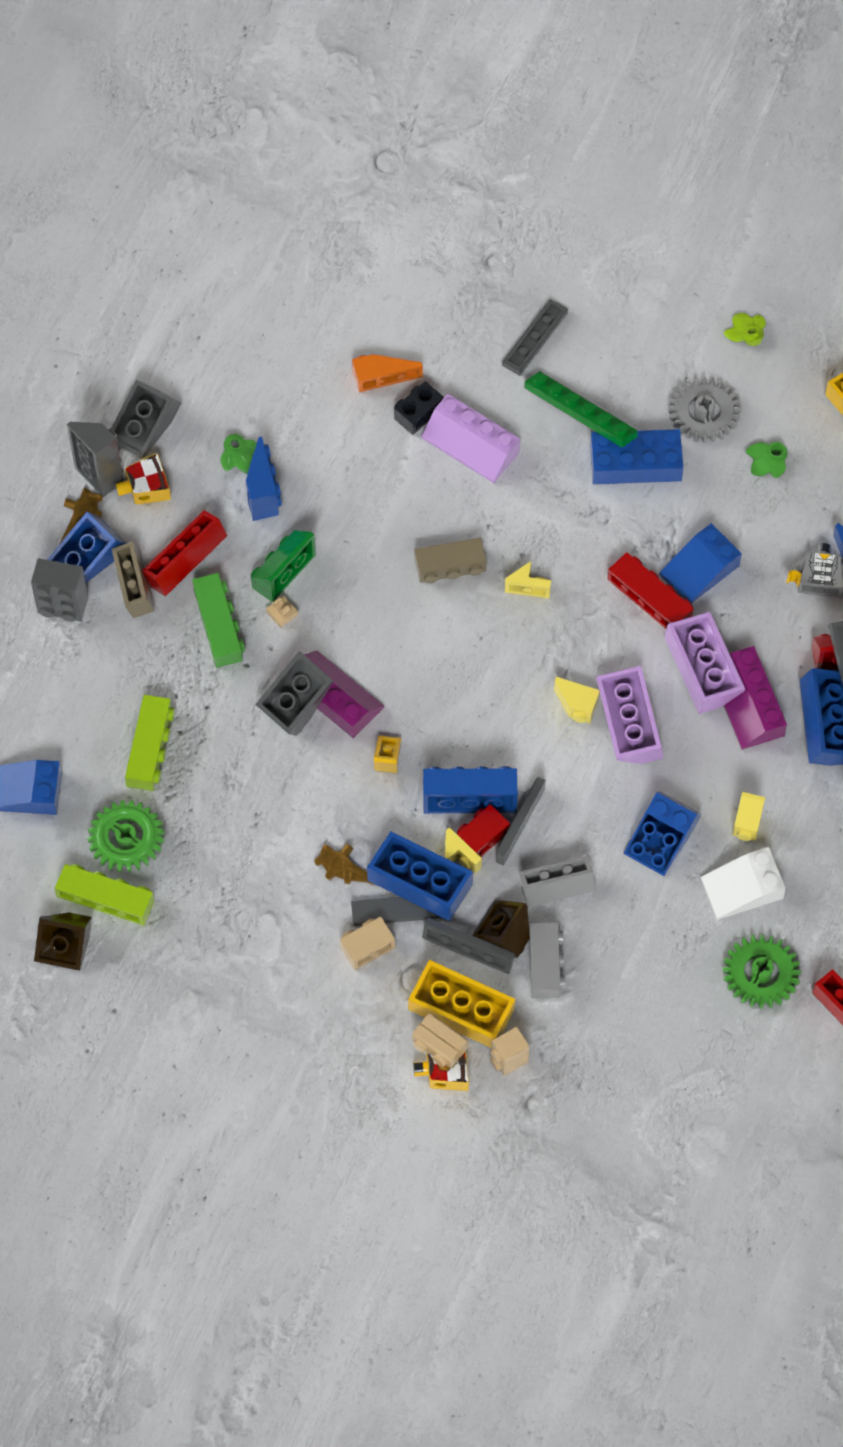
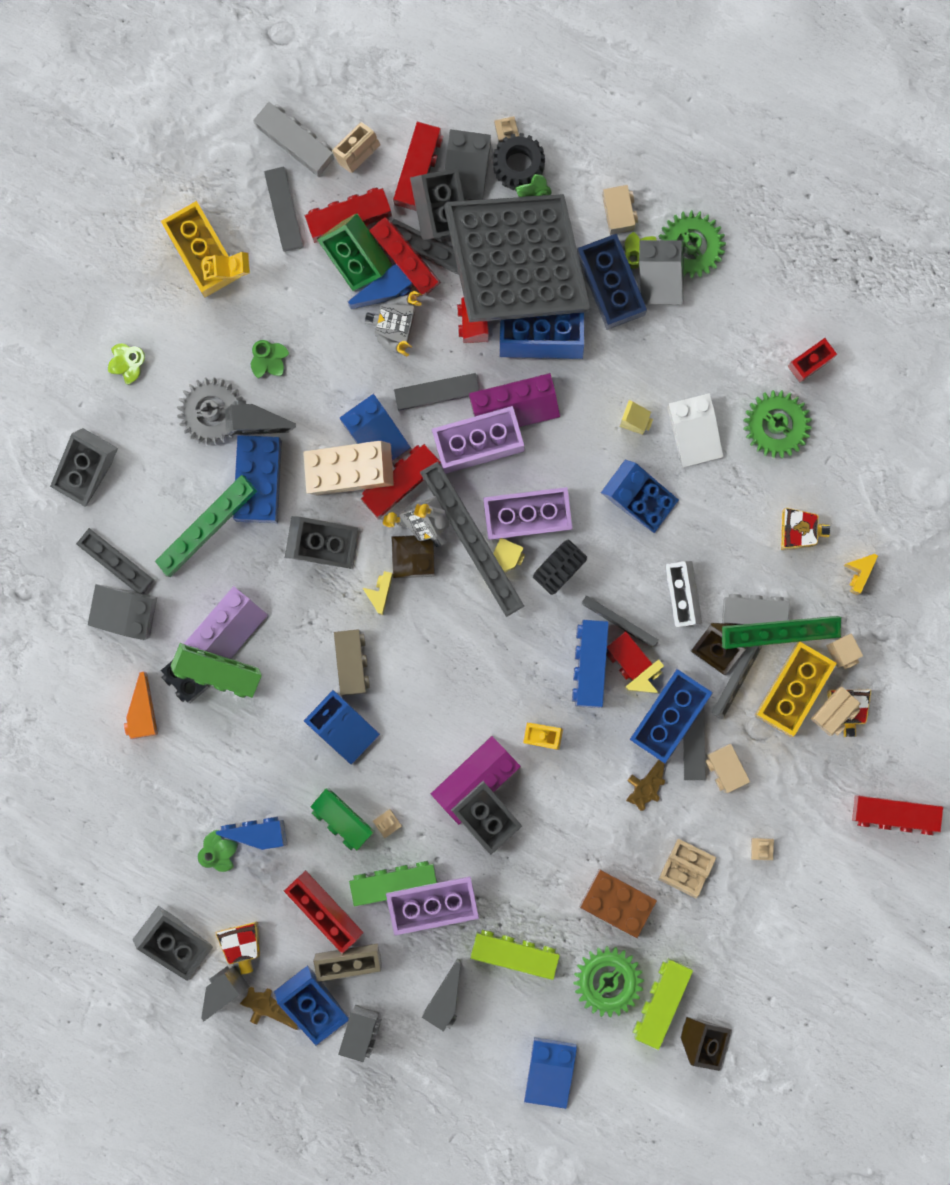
camera: 80 degrees left, 20 degrees up
(101, 675) = (442, 1006): none -> dark grey slope
(198, 653) = (432, 905): none -> lavender slope
(211, 840) = (618, 903): none -> dark orange brick
(254, 911) = (687, 868): none -> tan slope
(280, 988) = (762, 849): none -> tan tile
(330, 1126) = (897, 813): none -> red brick
(381, 555) = (341, 727): none -> blue slope
(429, 428) = (215, 670): none -> bright green brick
(482, 347) = (122, 612): none -> dark grey slope
(524, 980) = (781, 632): none -> green tile
(571, 615) = (412, 557): none -> dark brown slope
(573, 749) = (559, 567): none -> black tyre
(576, 523) = (321, 542): none -> dark grey slope
(593, 661) = (472, 539): none -> dark grey tile
(608, 1072) = (863, 567): none -> yellow slope
(611, 613) = (423, 518): none -> torso
(632, 297) = (83, 466): none -> dark grey slope
(643, 1002) = (801, 529): none -> torso
(657, 535) = (348, 468): none -> tan brick
(696, 433) = (251, 419): none -> dark grey slope
(753, 621) = (436, 391): none -> dark grey tile

